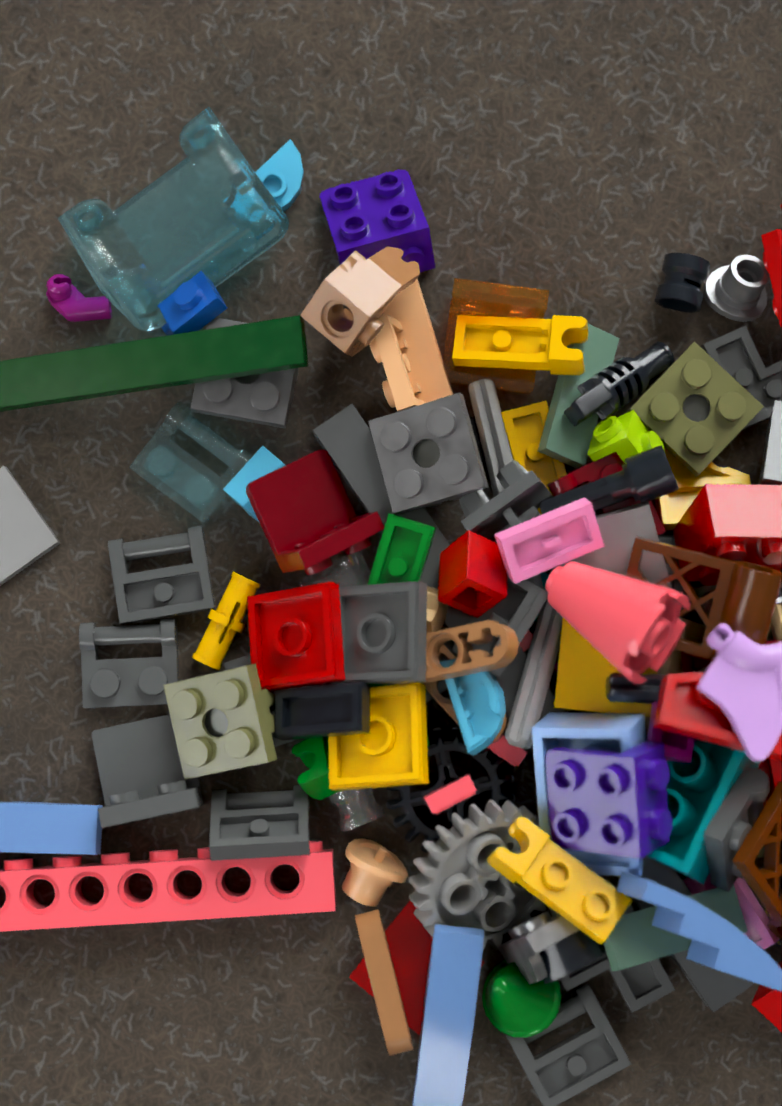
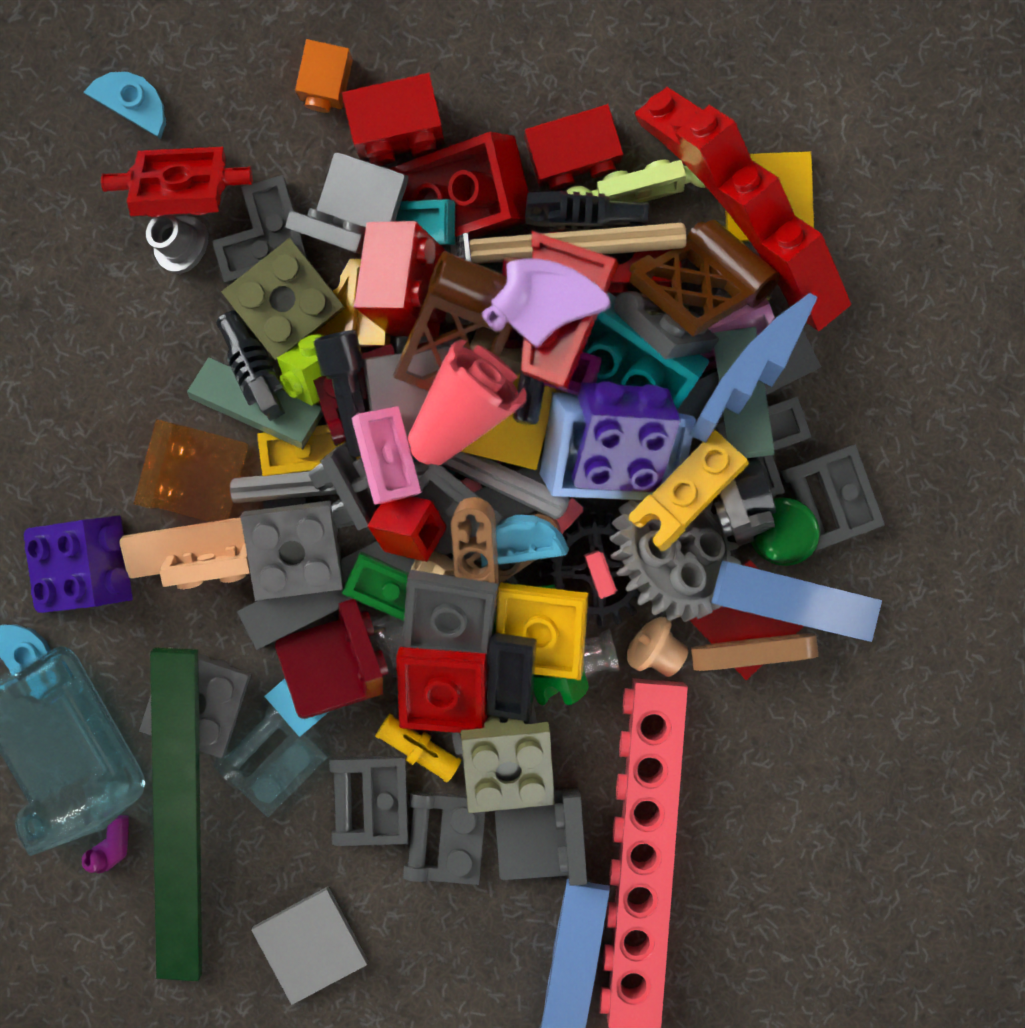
camera: 75 degrees left, 5 degrees up
(191, 306) = (127, 744): blue bracket -> none
(259, 824) = (602, 743): dark grey plate -> none
(366, 290) = (135, 589): medium nougat piece -> none
(521, 343) = (201, 450): yellow plate -> none
(682, 282) = (164, 291): black wheel -> none

